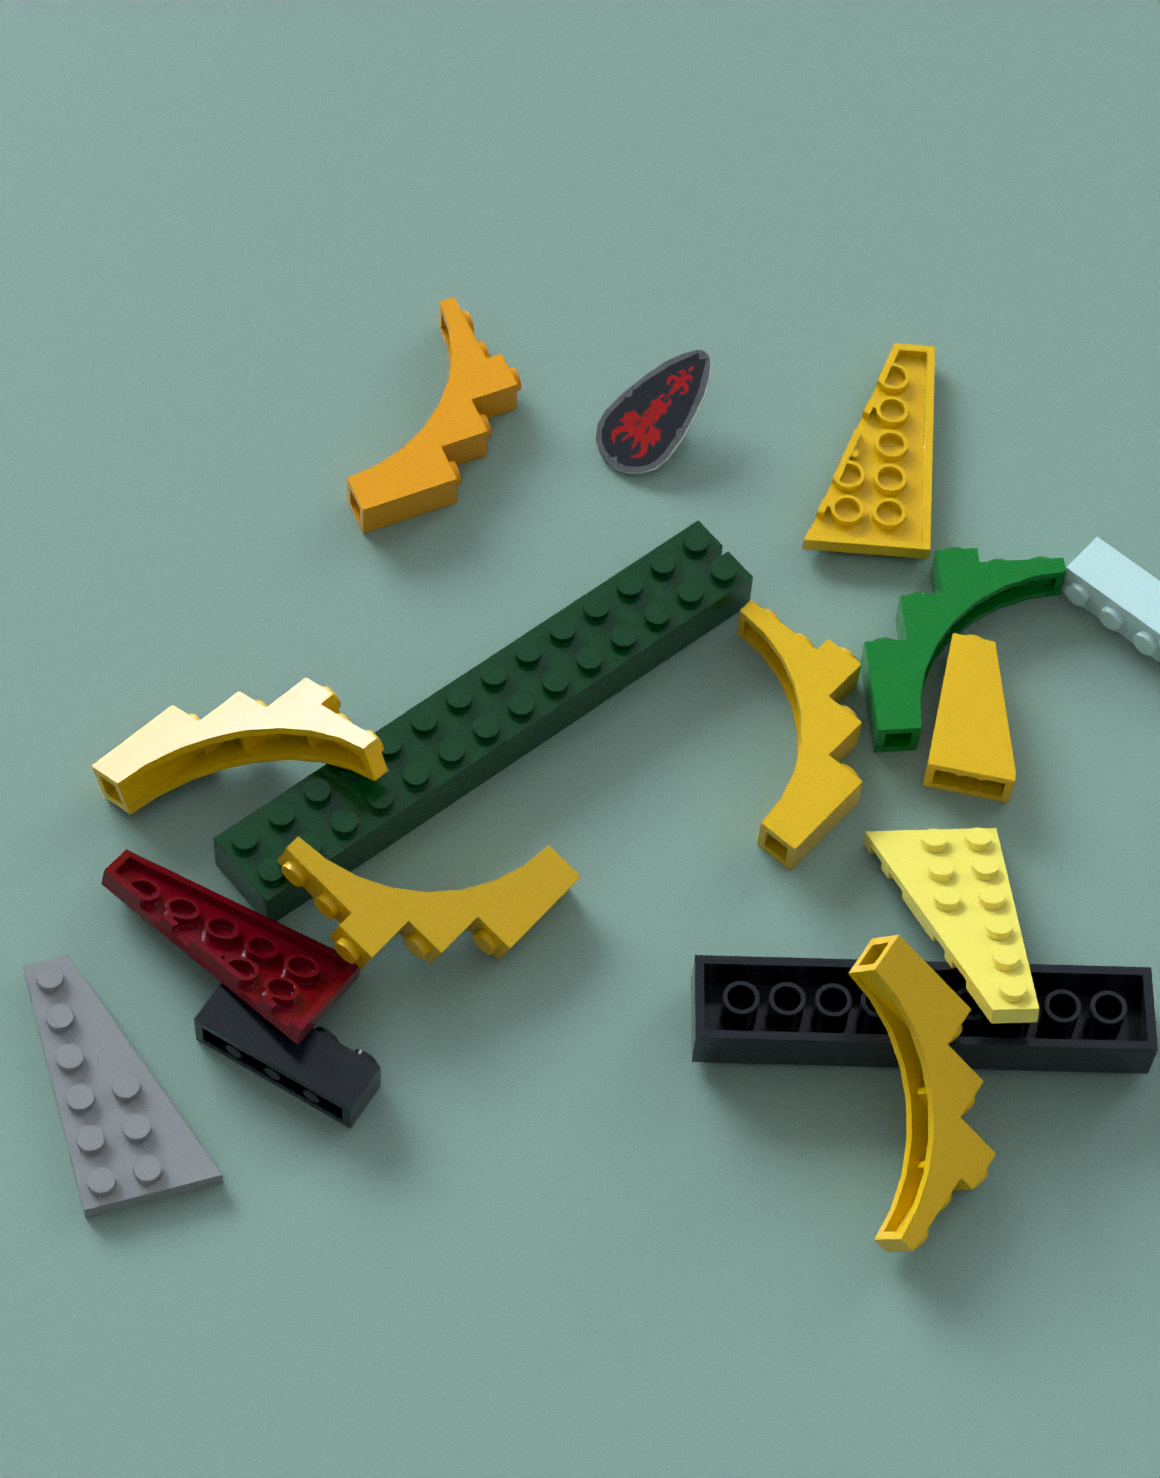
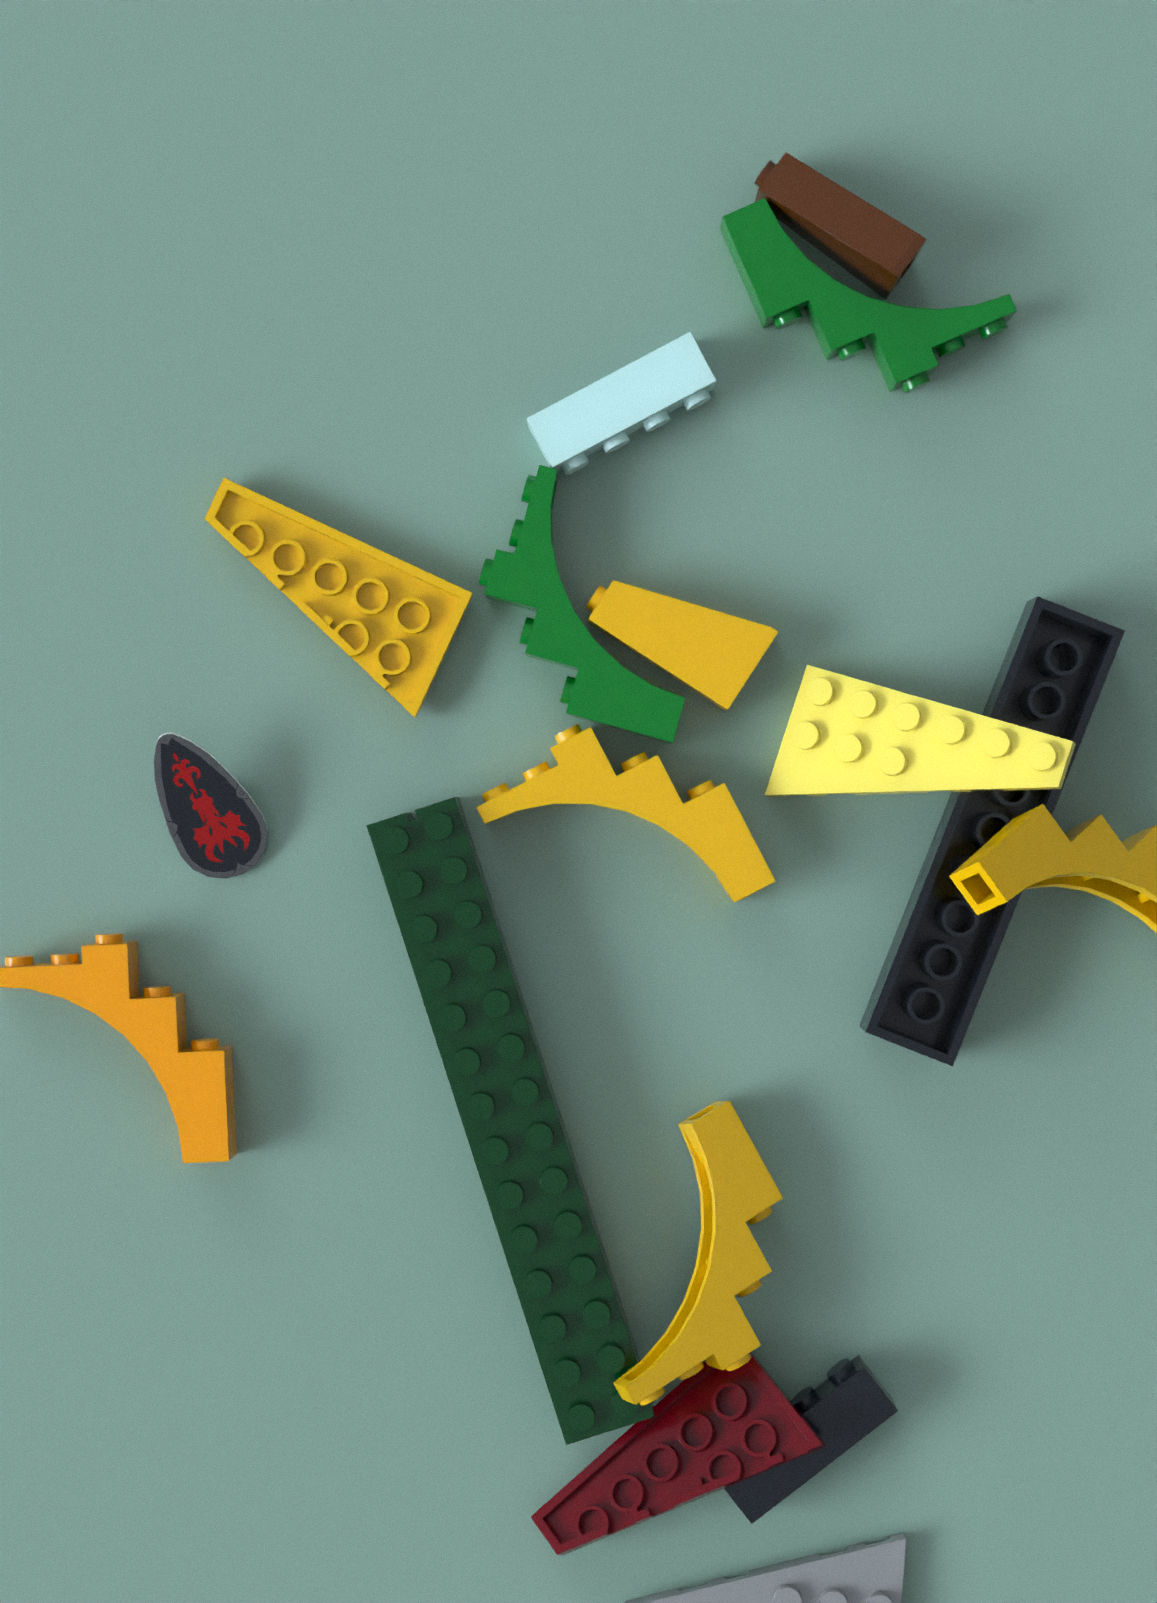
camera: 65 degrees left, 30 degrees up
(239, 732) = (442, 1429): yellow arch -> none

